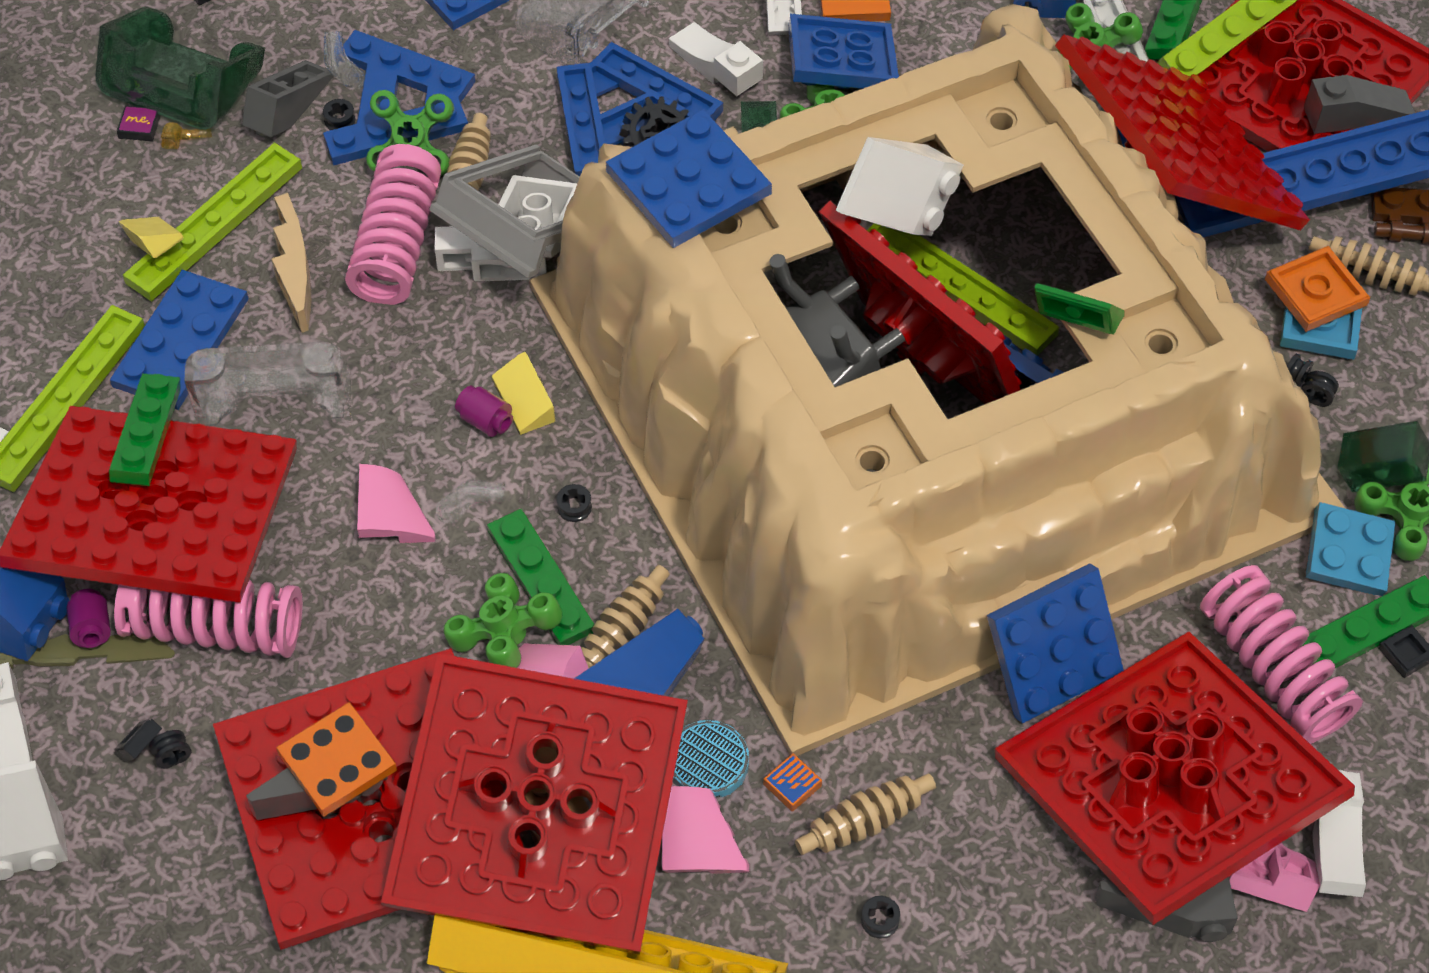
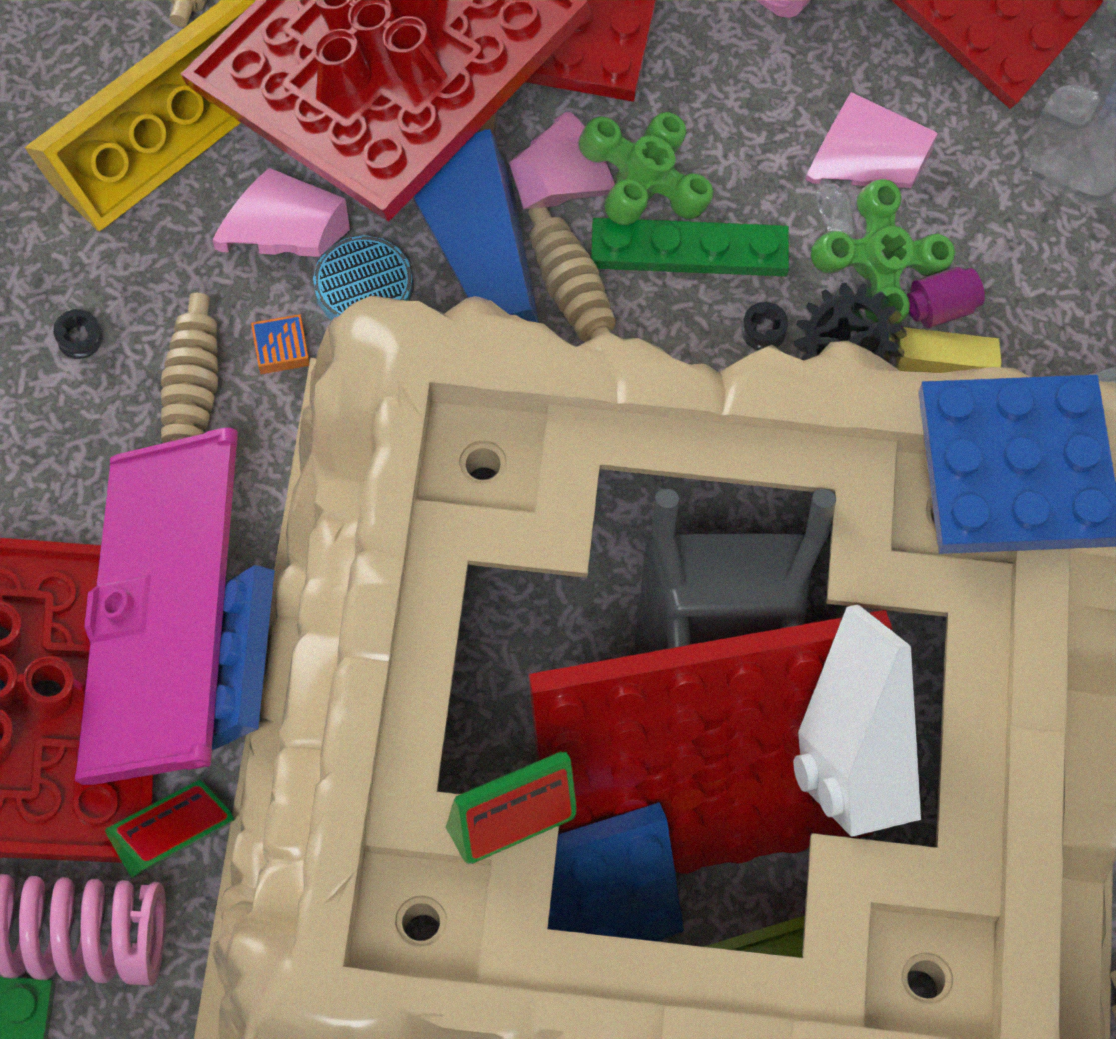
camera: 120 degrees right, 10 degrees up
(478, 453) = (878, 205): none -> bright green gear
(553, 456) = (841, 316): none -> black gear
(1046, 692) = (158, 610): none -> dark pink door
(1164, 624) = (168, 827): none -> slope

